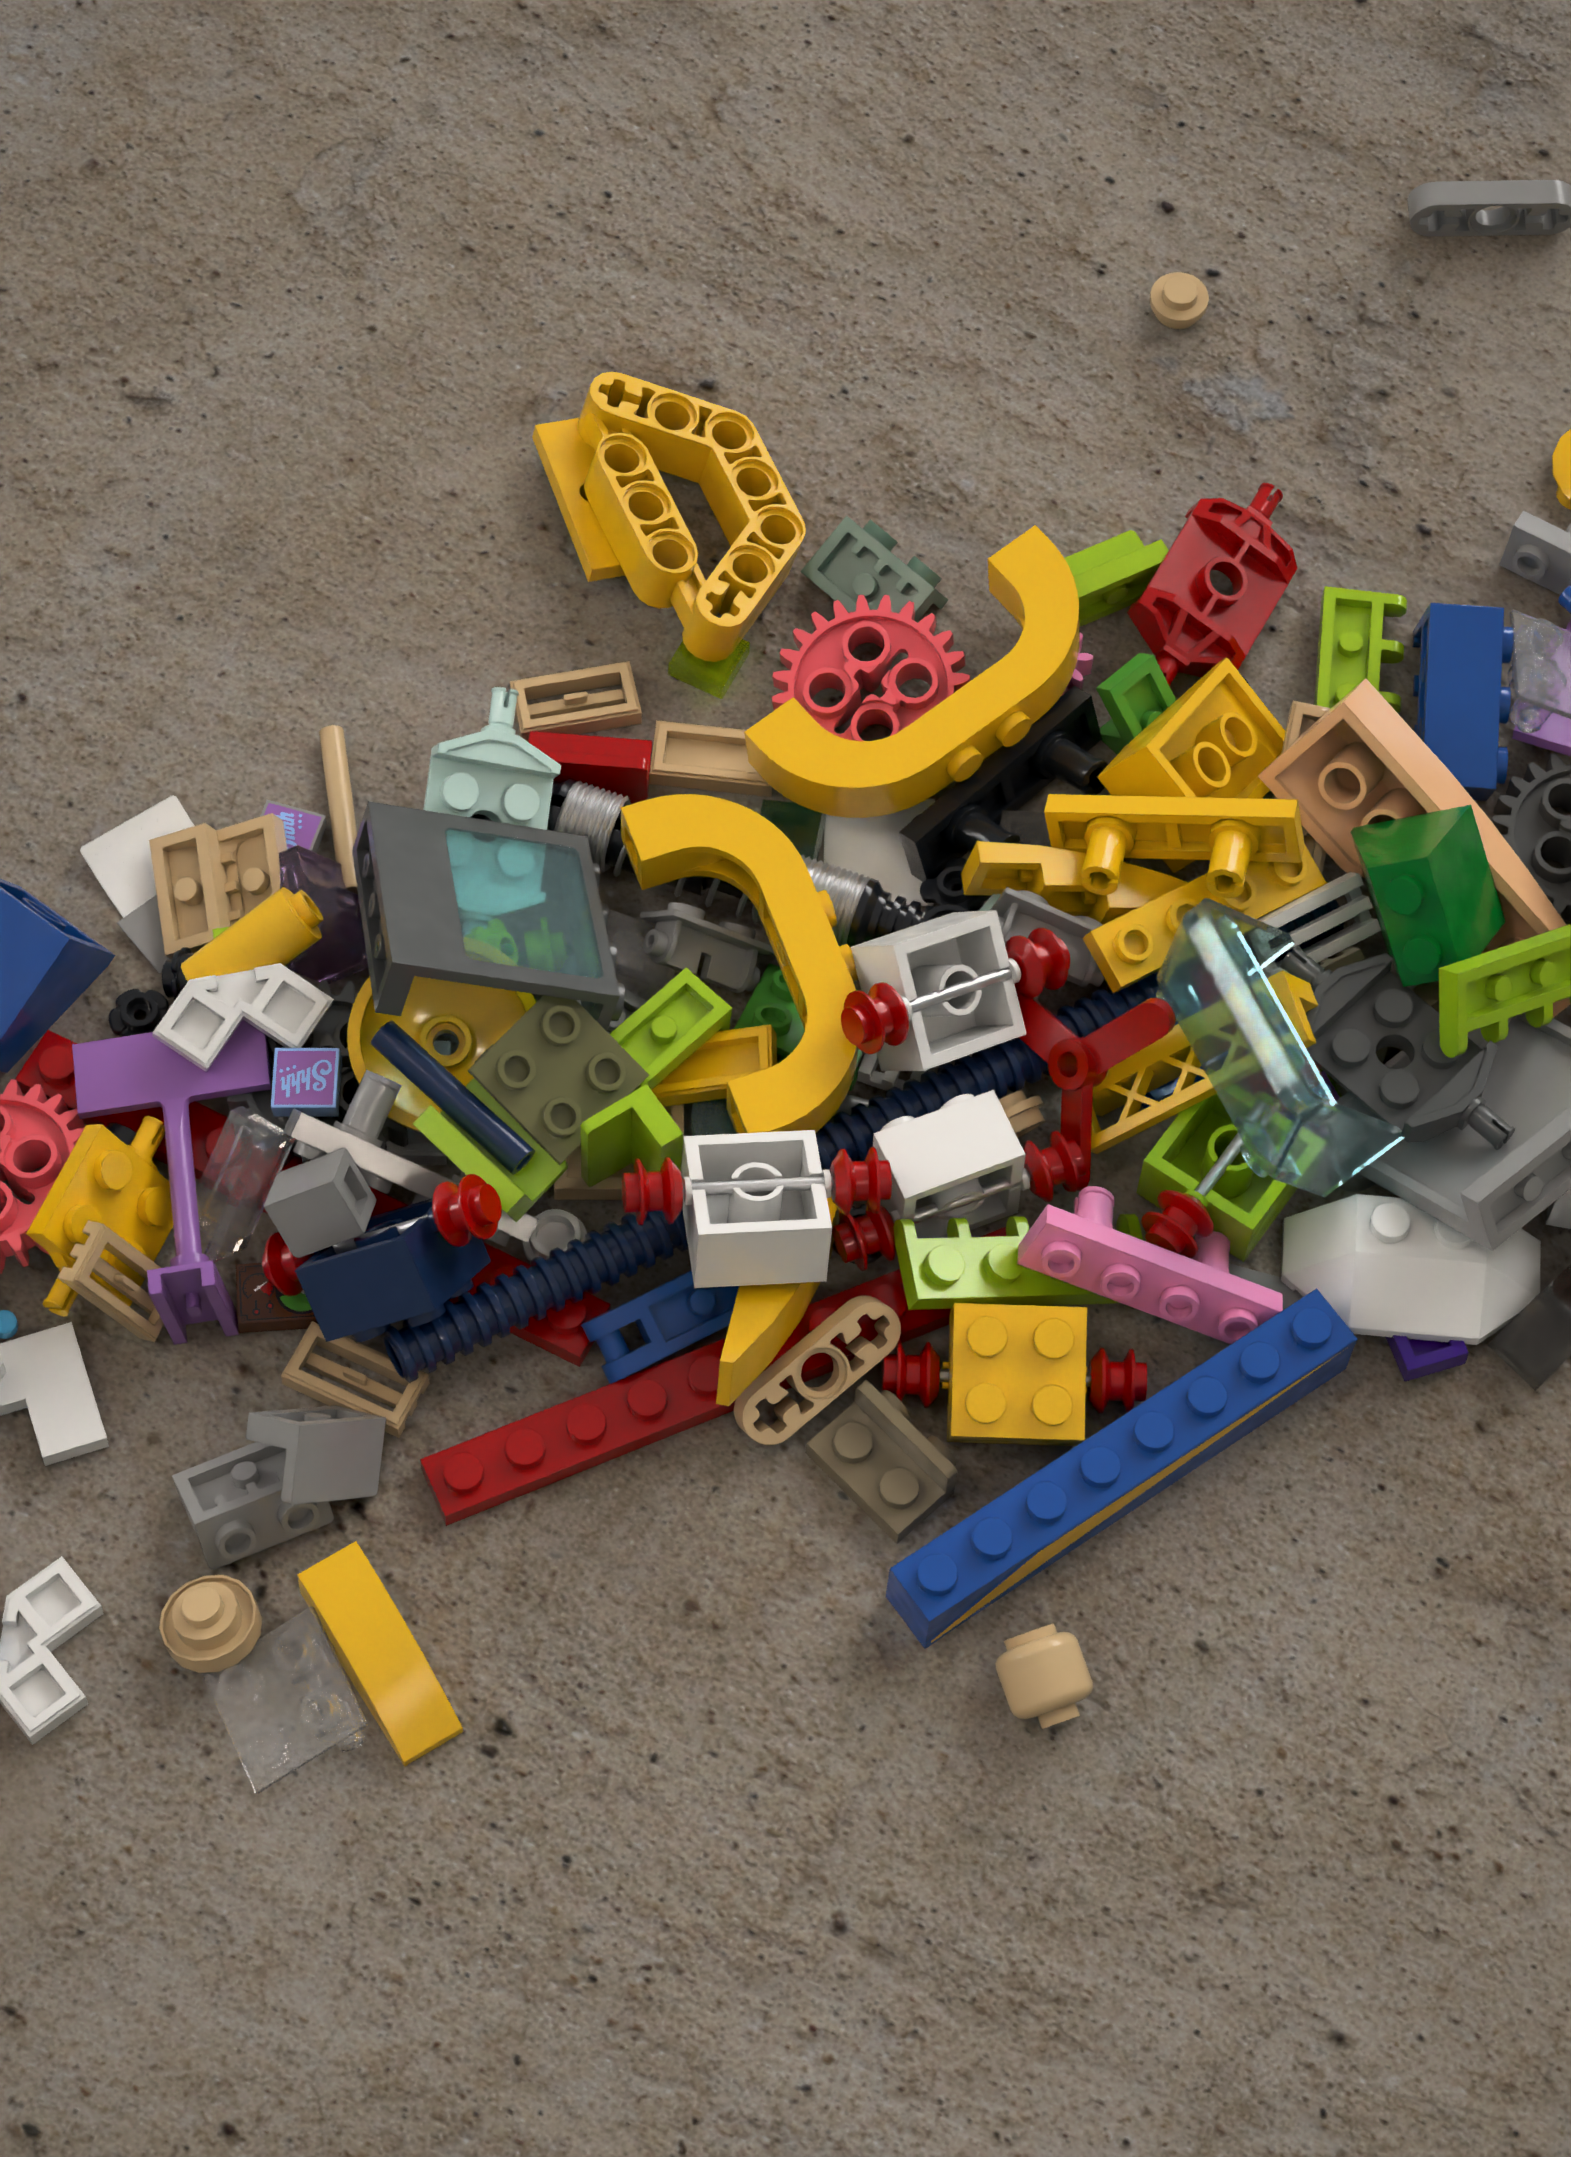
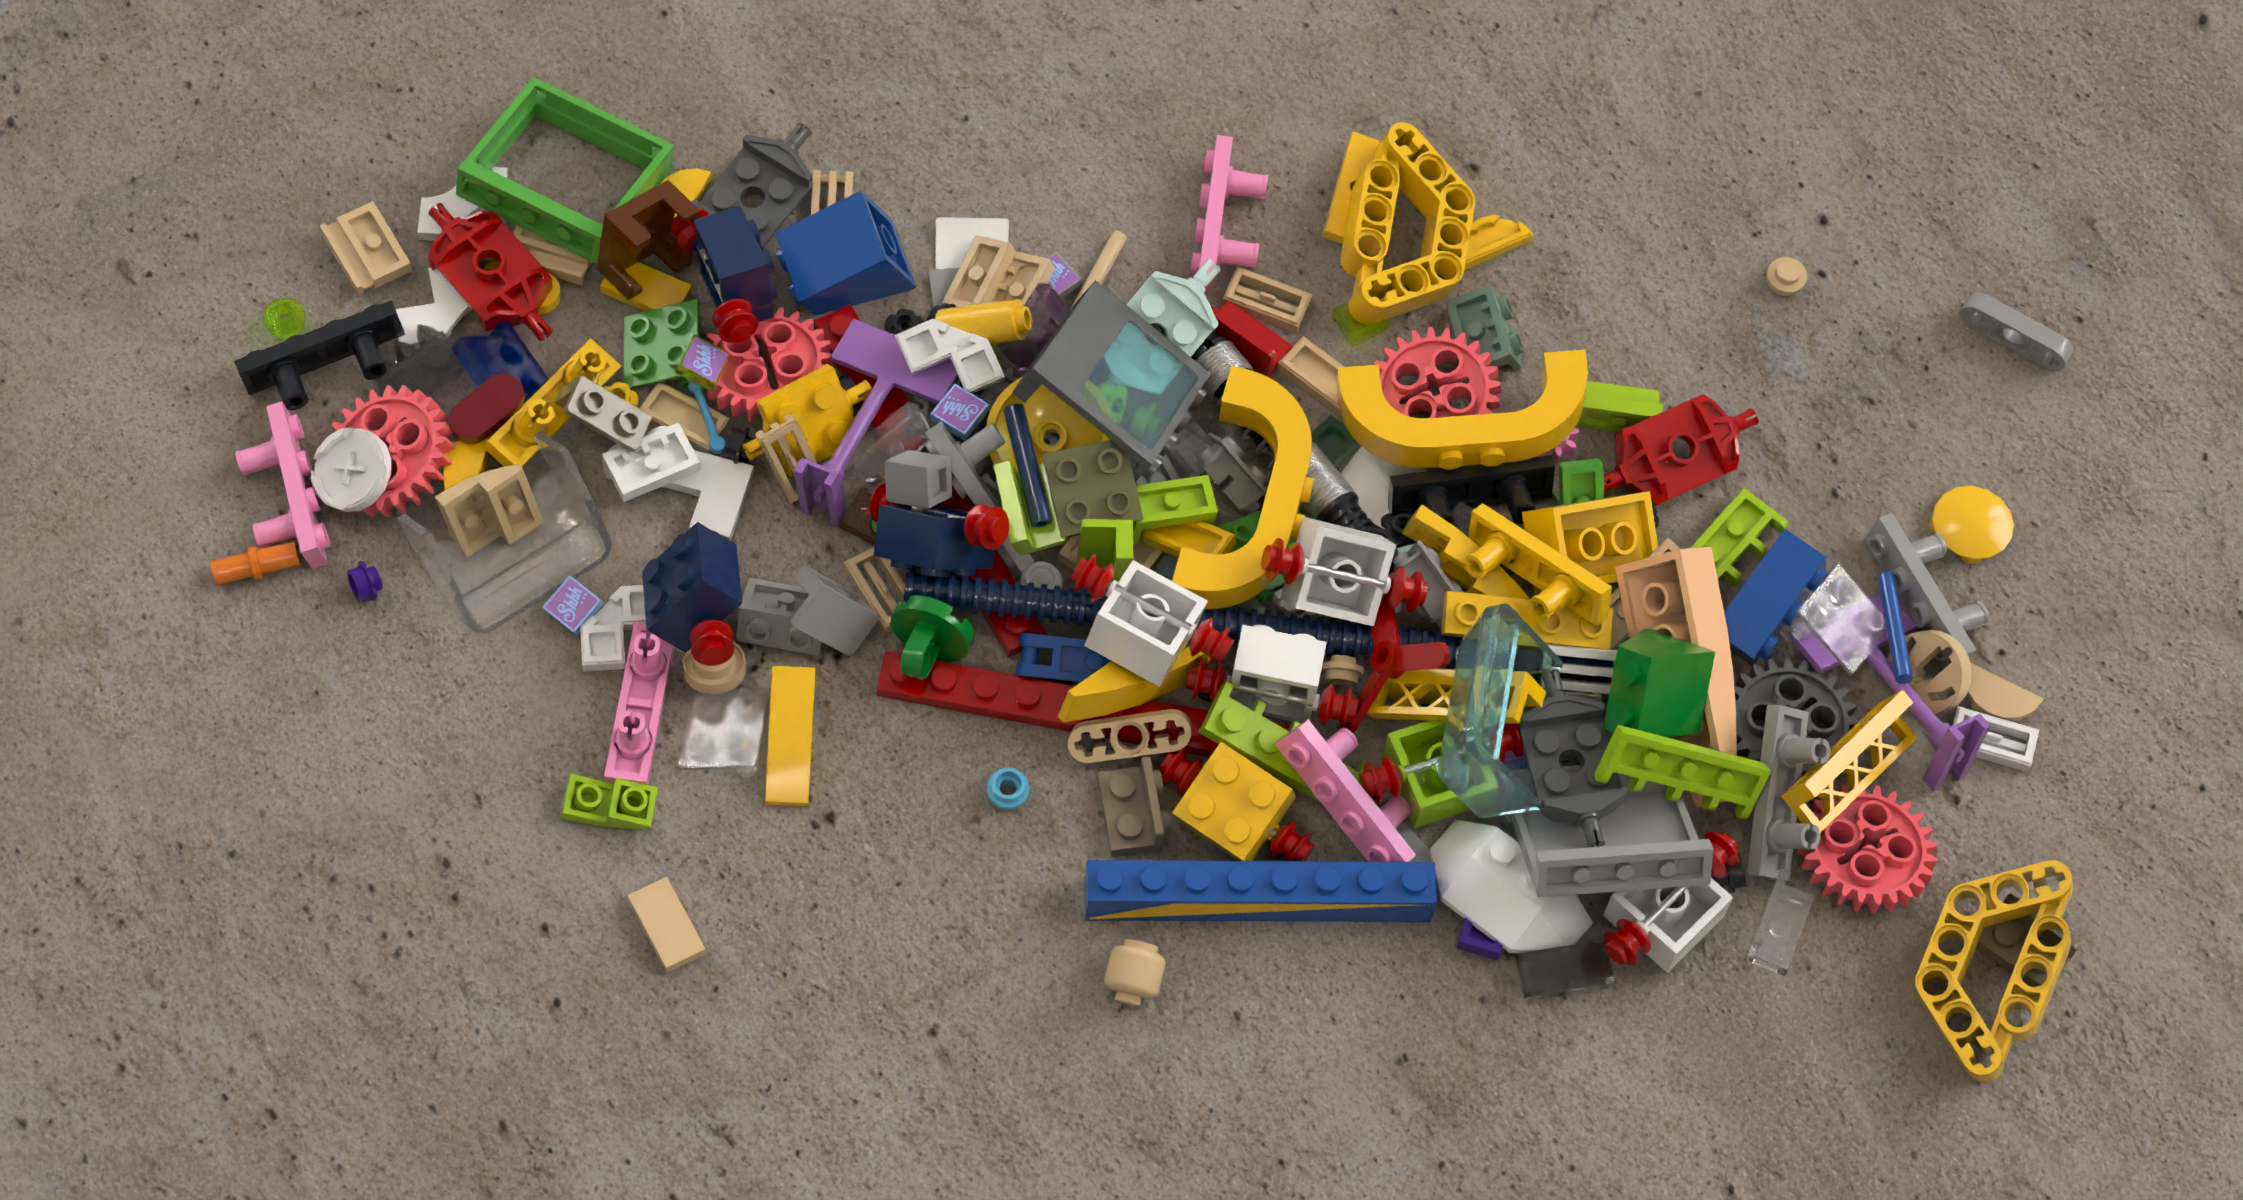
camera: 30 degrees right, 0 degrees up
(27, 1306) = (734, 446): none -> black plate
(124, 1543) = (692, 593): none -> dark blue brick
(148, 1741) = (639, 707): none -> bright pink plate
(198, 1903) = (607, 804): none -> lime slope
(392, 2017) = (666, 925): none -> tan tile
(419, 611) = (1223, 183): none -> bright pink plate
(470, 1397) = (929, 635): none -> green tile
(707, 1521) = (1012, 778): none -> medium azure plate
(803, 453) = (1494, 236): none -> yellow tile

